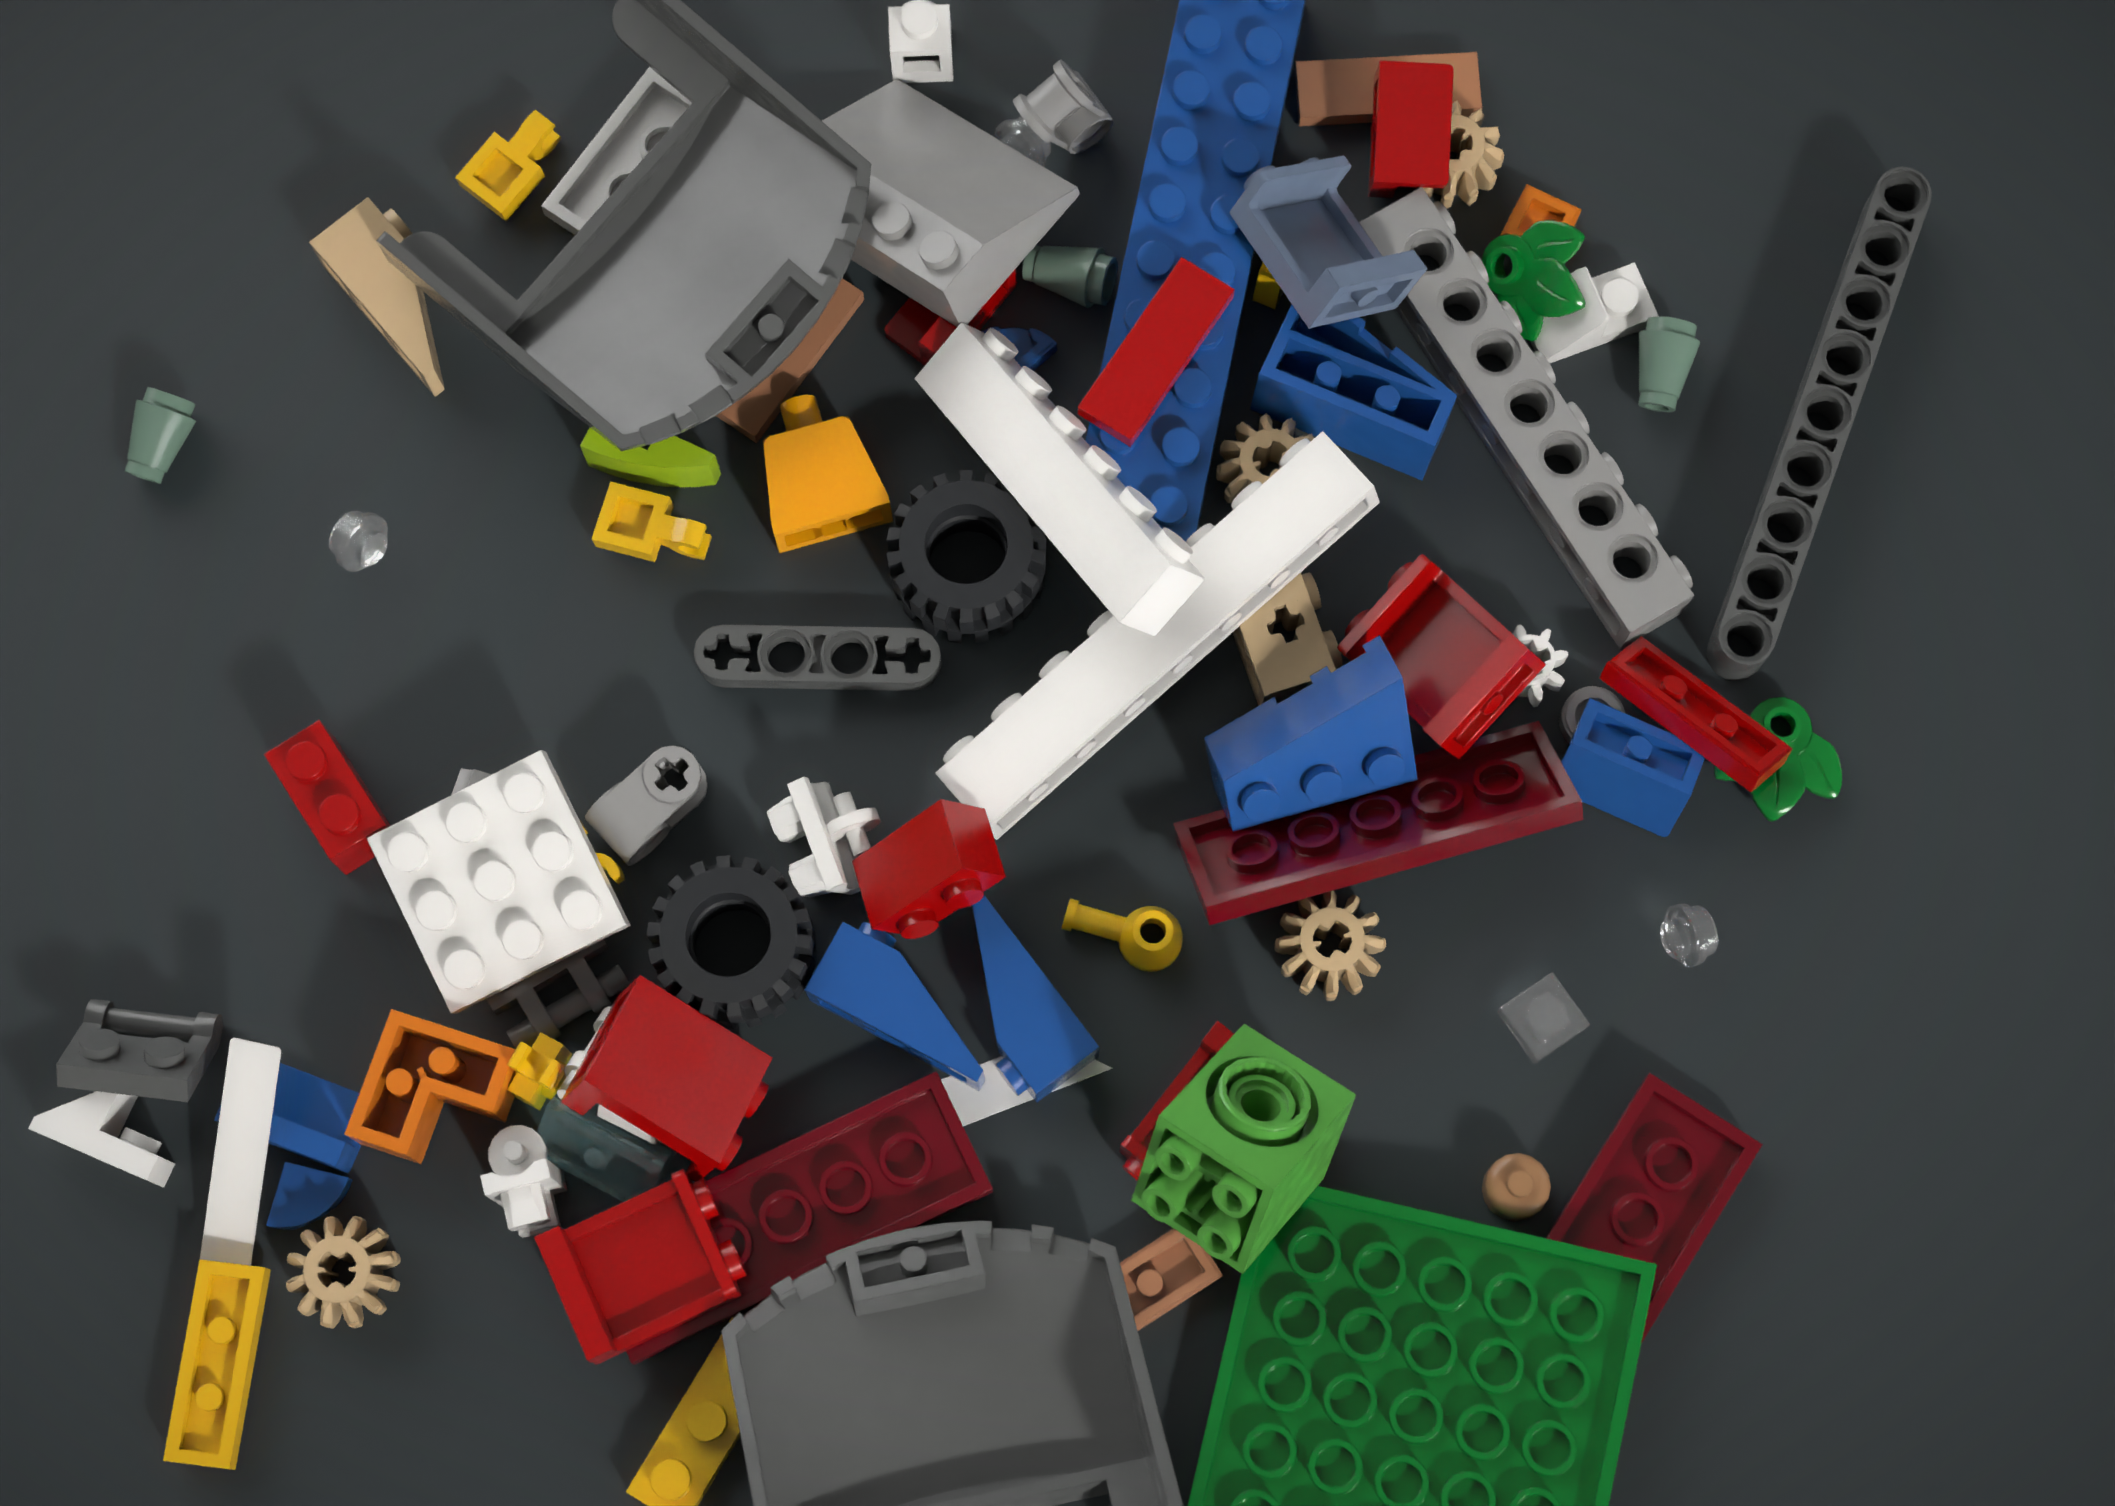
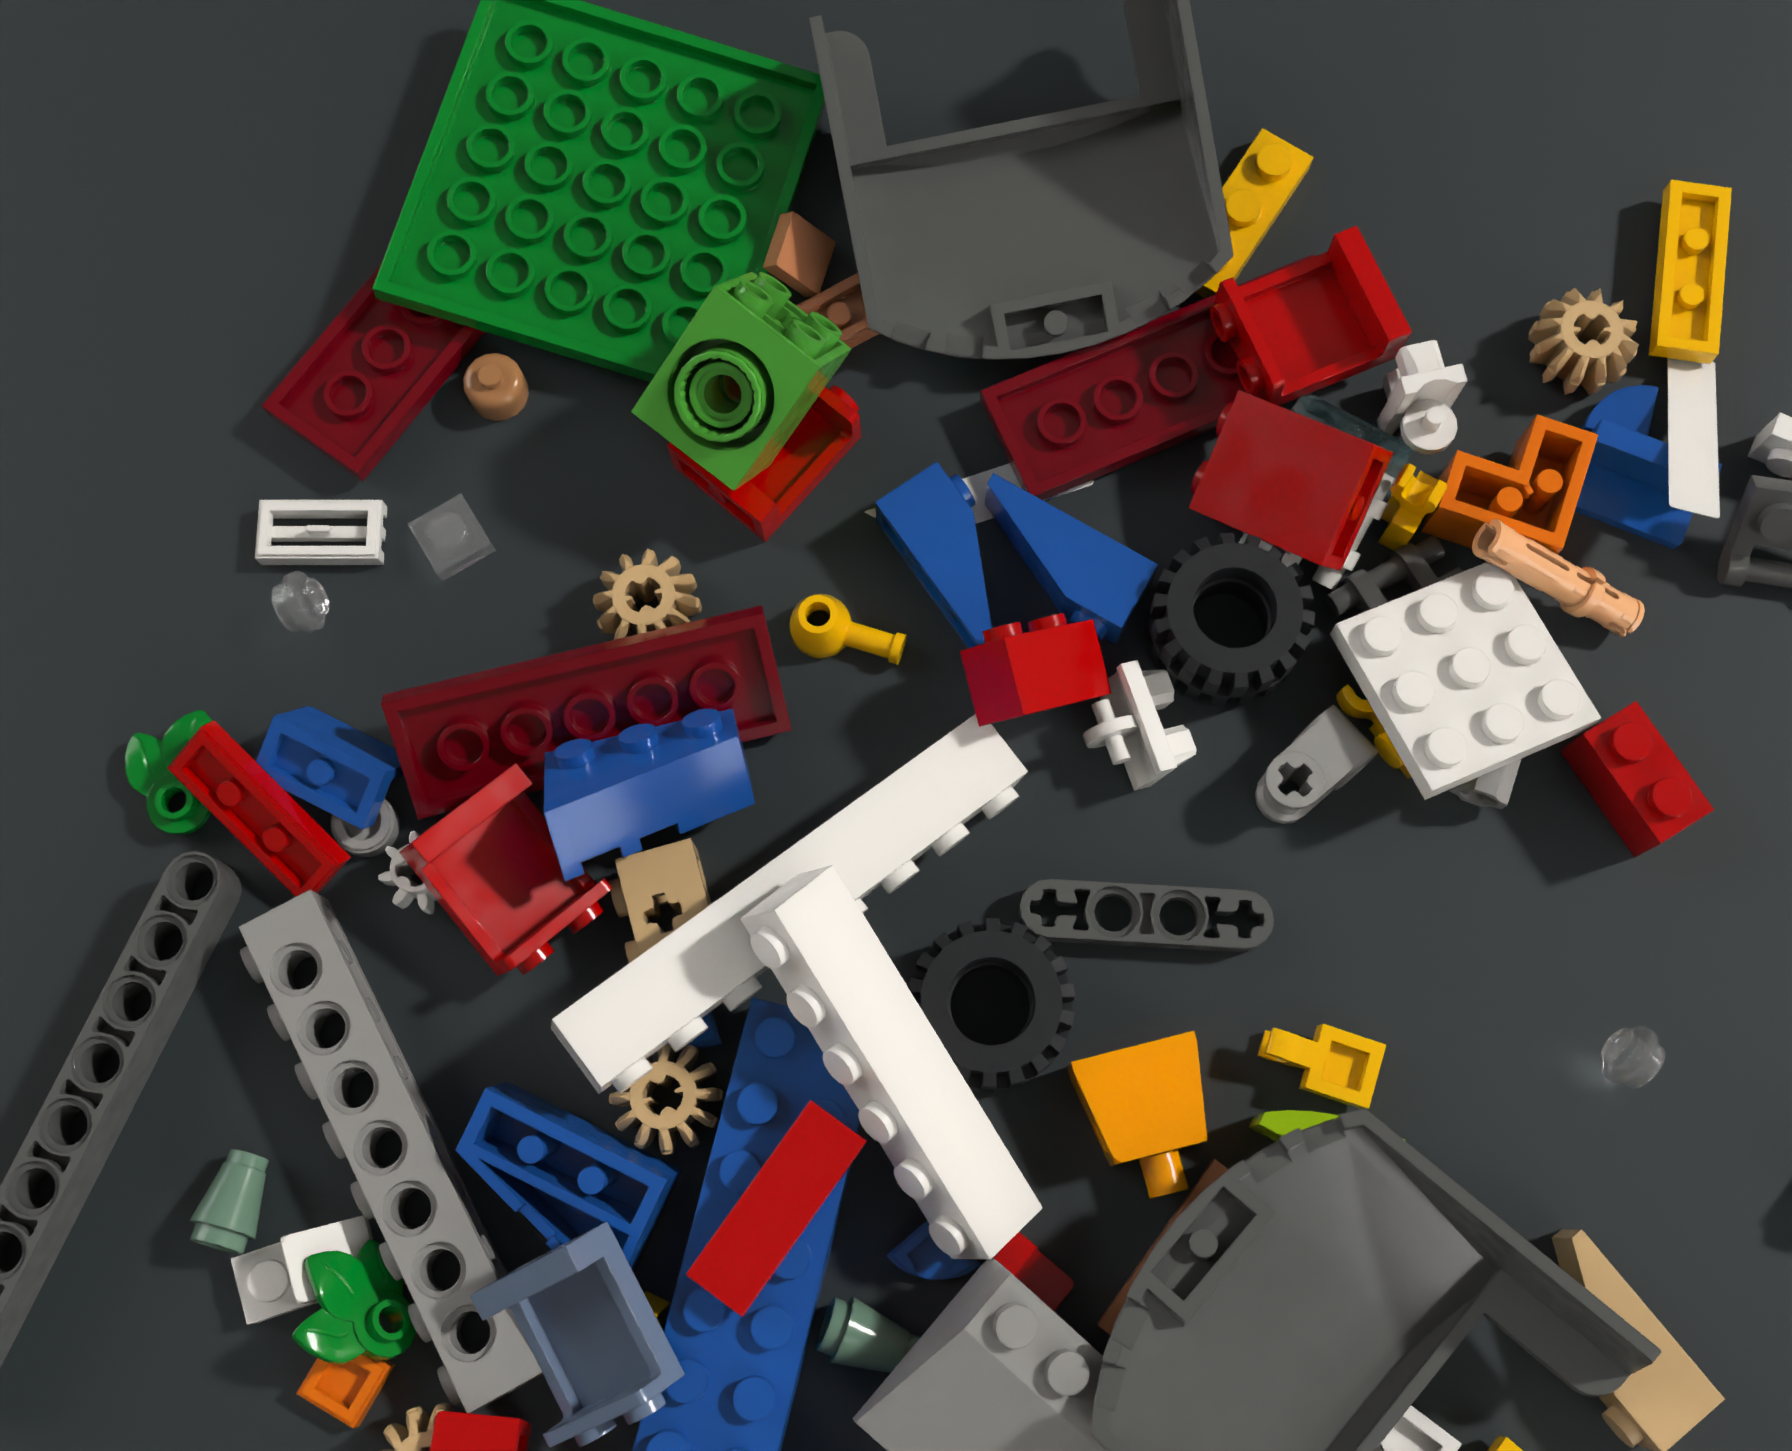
camera: 175 degrees left, 0 degrees up
(375, 986) = (1576, 589): none -> light nougat pin
(1197, 1347) = (799, 254): none -> nougat tile
(1626, 1021) = (372, 534): none -> white tile

